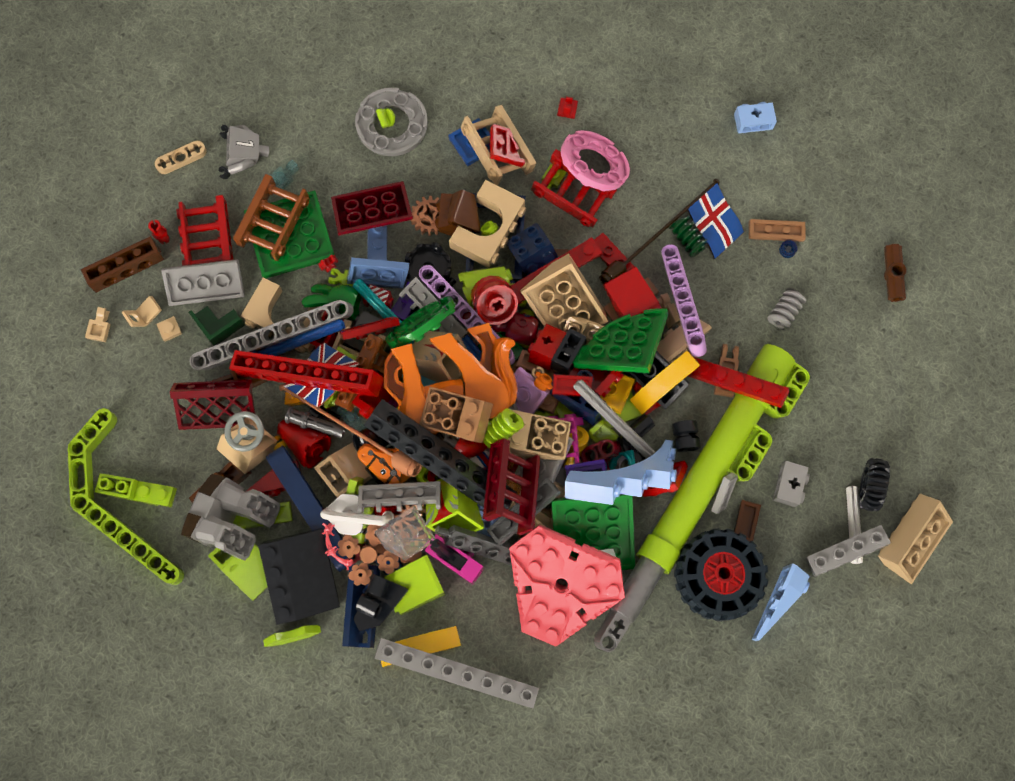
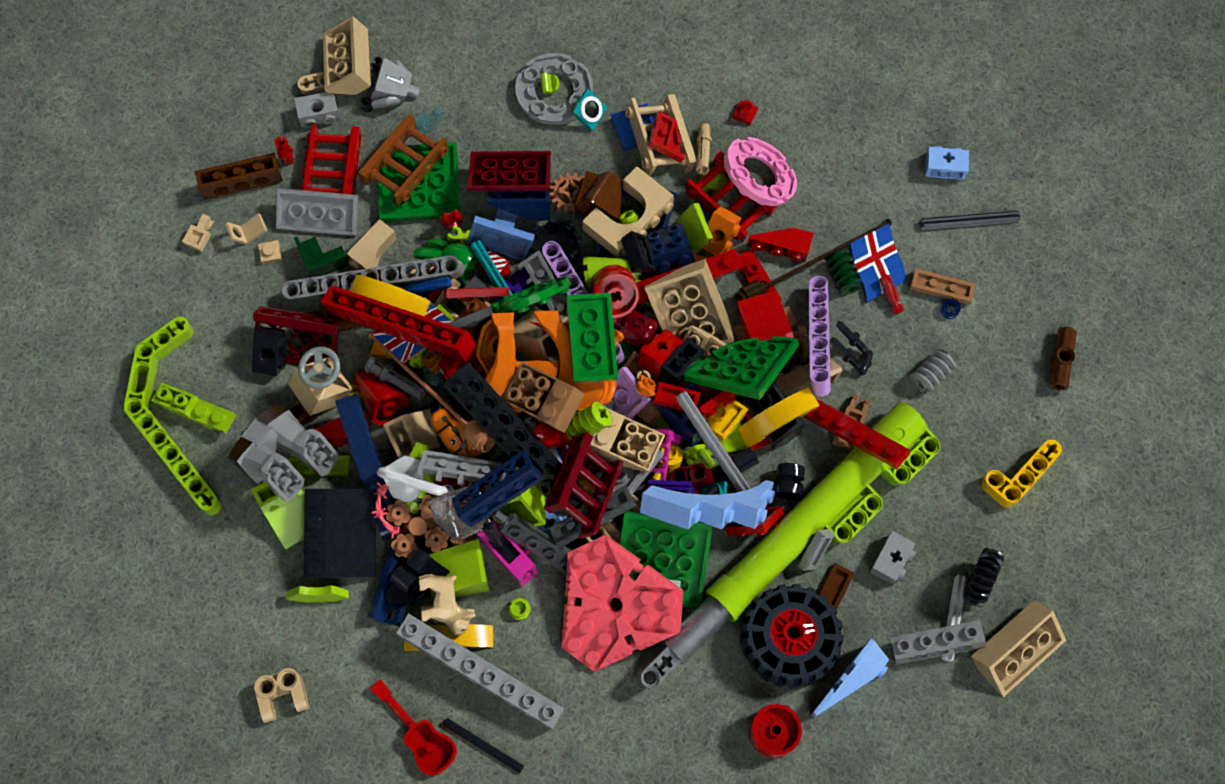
camera: 15 degrees right, 5 degrees down
(169, 184) = (308, 105): none -> light grey brick
(189, 432) = (263, 361): none -> black brick
(195, 132) = (346, 58): none -> tan slope
(279, 729) = (265, 701): none -> tan piece
(291, 348) = (389, 294): none -> yellow slope
(375, 355) = (473, 319): none -> dark grey tile
(395, 235) = (525, 204): none -> dark blue slope
(410, 622) = (444, 604): none -> tan animal
(419, 136) = (579, 109): none -> teal piece
(429, 750) = (431, 749): none -> red piece
(436, 513) = (497, 493): none -> dark blue fence
(474, 735) = (483, 745): none -> black bar
(476, 605) = (519, 609): none -> lime plate
(488, 351) = (592, 337): none -> green plate
(506, 260) = (638, 253): none -> black slope
(538, 144) = (703, 142): none -> tan pin
(549, 223) = (695, 227): none -> lime tile
(567, 232) = (728, 224): none -> orange brick
(635, 219) = (786, 242): none -> red slope
(711, 310) = (848, 353): none -> black piece
(734, 247) = (891, 294): none -> red axle
(738, 660) = (765, 740): none -> red wheel
(786, 165) = (970, 220): none -> black axle
(886, 380) = (1027, 472): none -> yellow beam

